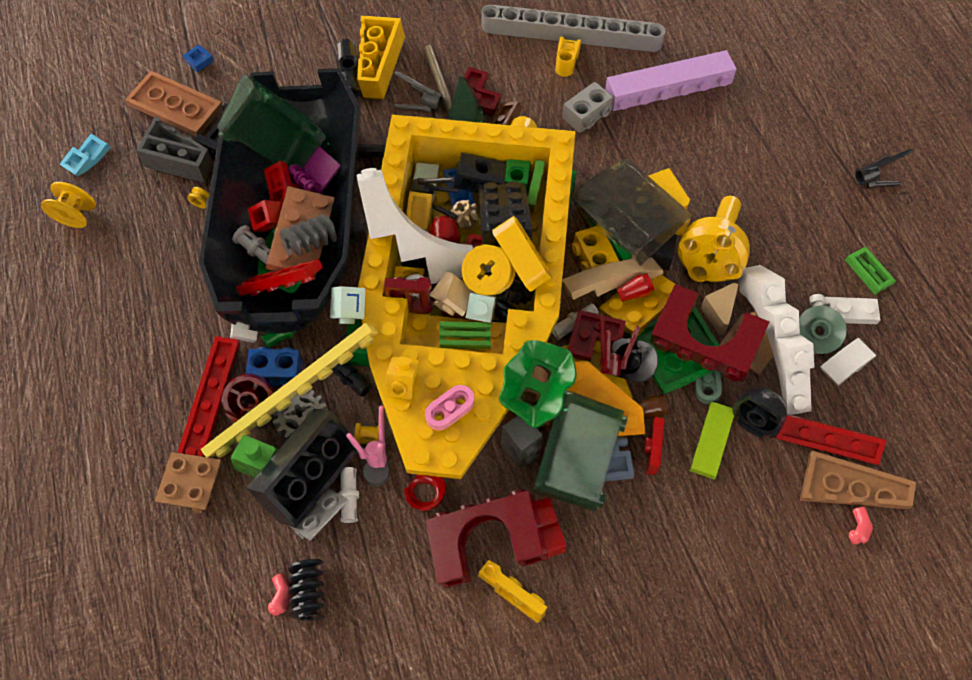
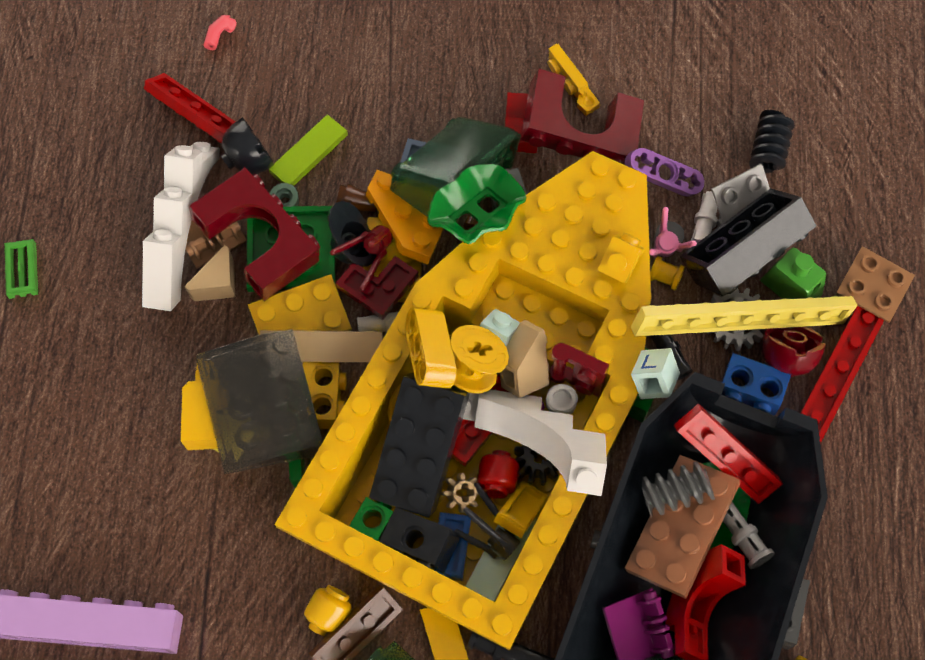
camera: 155 degrees left, 5 degrees up
(281, 599) = (797, 147): coral arm -> none
(407, 523) = (677, 171): none -> medium lavender beam
(447, 407) = (580, 205): bright pink plate -> none
(465, 330) = (555, 307): bright green tile -> none
(535, 184) = (353, 498): bright green tile -> none
(587, 107) = (220, 628): light grey brick -> none
(636, 288) = (302, 317): red cone -> none
(653, 446) = (371, 159): red plate -> none
(715, 246) = (186, 329): yellow piece -> none
(832, 324) = (126, 214): sand green dish -> none
(847, 361) = (120, 175): white slope -> none
(847, 483) = (207, 70): medium nougat wing -> none
(852, 309) = (82, 233): white plate -> none

